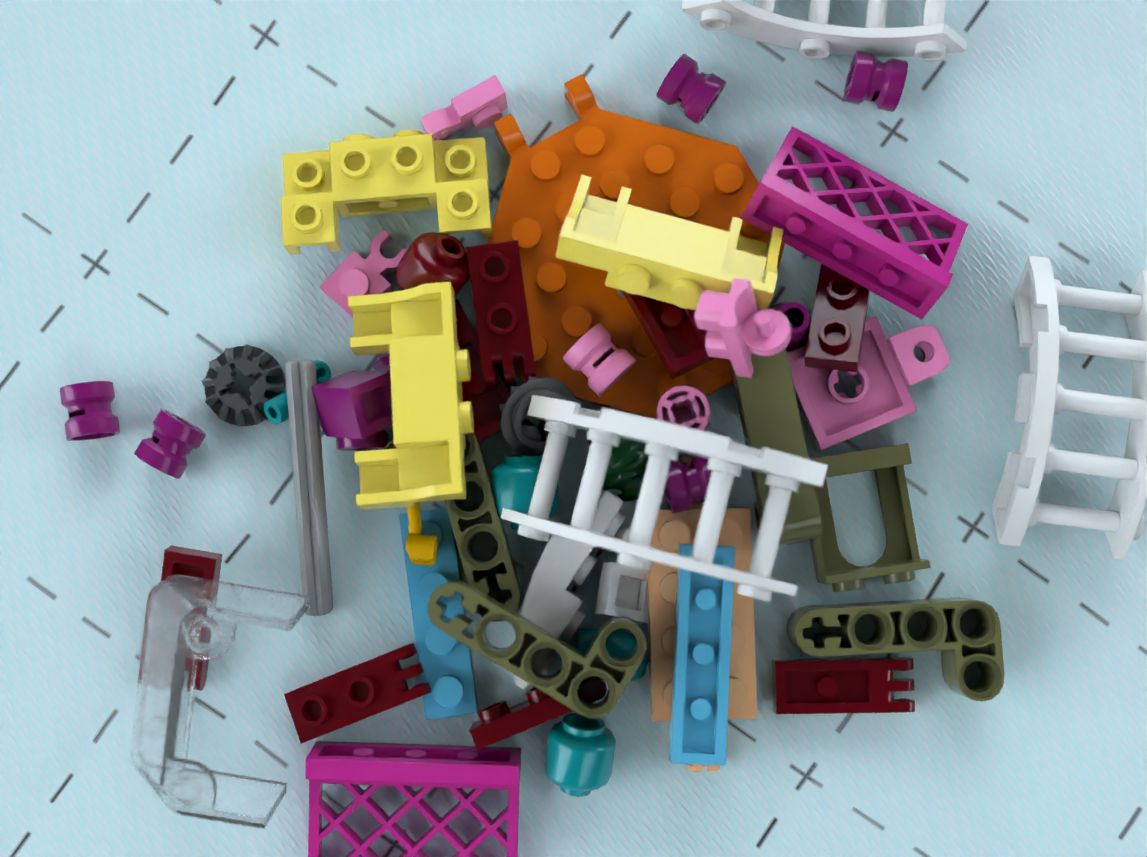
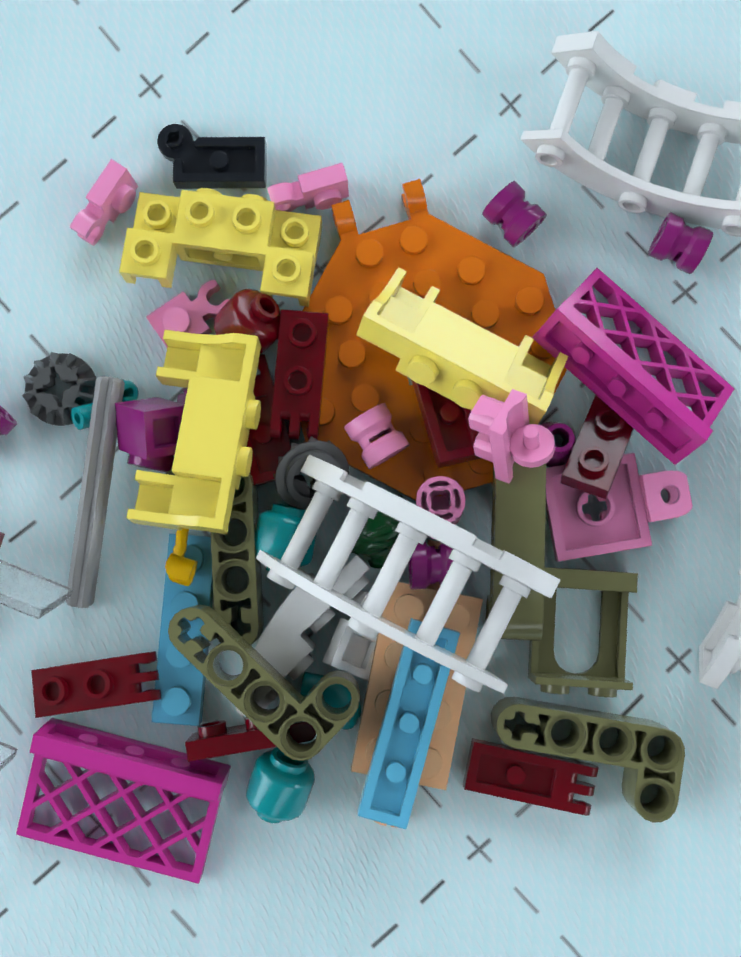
camera: 15 degrees right, 0 degrees up
(251, 165) = (108, 198): none -> bright pink plate
(353, 102) = (214, 160): none -> black hinge

